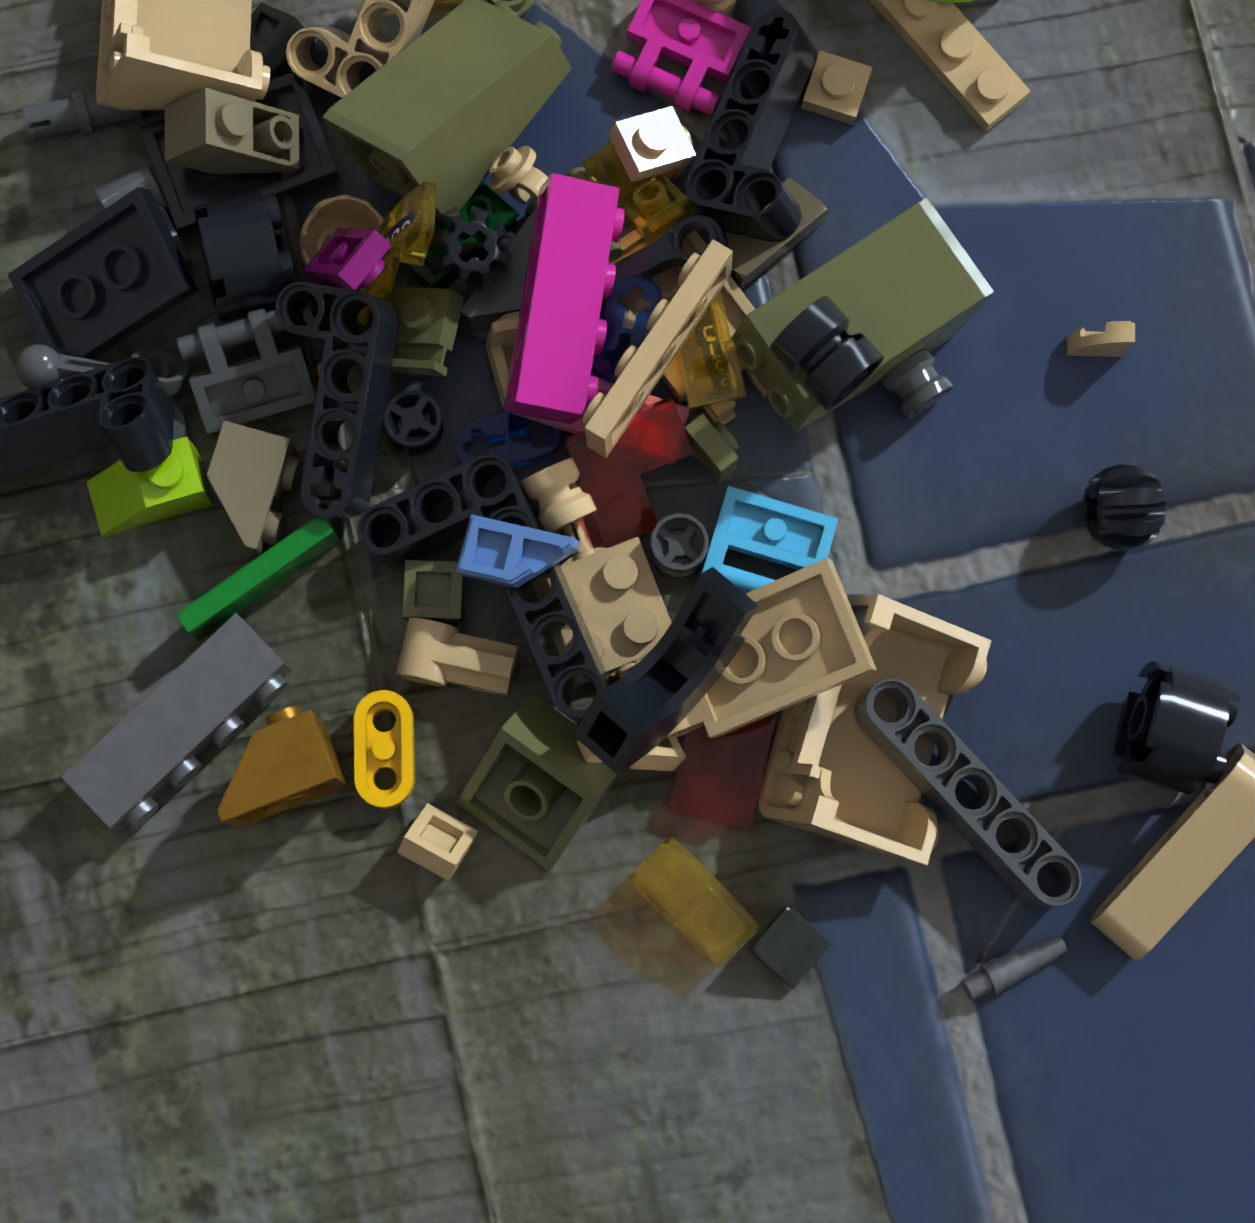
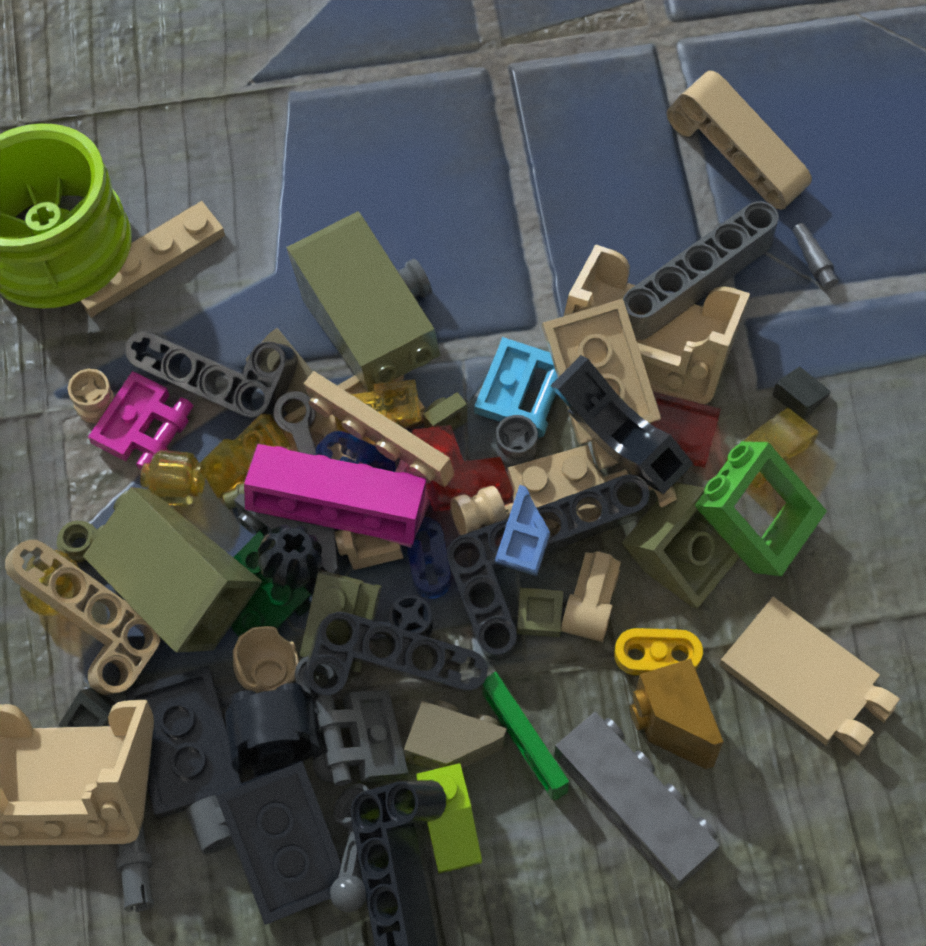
camera: 80 degrees left, 15 degrees down
(230, 135) = (175, 735): dark tan slope -> none
(349, 259) = (290, 639): magenta plate -> none
(363, 950) = (808, 676): none -> tan tile
(409, 232) = (276, 598): clear yellow slope -> none
(437, 841) = (728, 616): tan plate -> none
(515, 174) = (227, 528): tan plate -> none
(557, 916) = (790, 528): none -> bright green window
(595, 97) = (174, 477): none -> clear yellow head
(653, 145) = (216, 436): bracket -> none
(826, 352) = (403, 303): black wheel -> none
(836, 87) = (182, 322): tan plate -> none
(1114, 342) = (386, 169): tan tile -> none
(1124, 507) = (505, 162): black piece -> none
(1175, 729) = (659, 141): black brick -> none

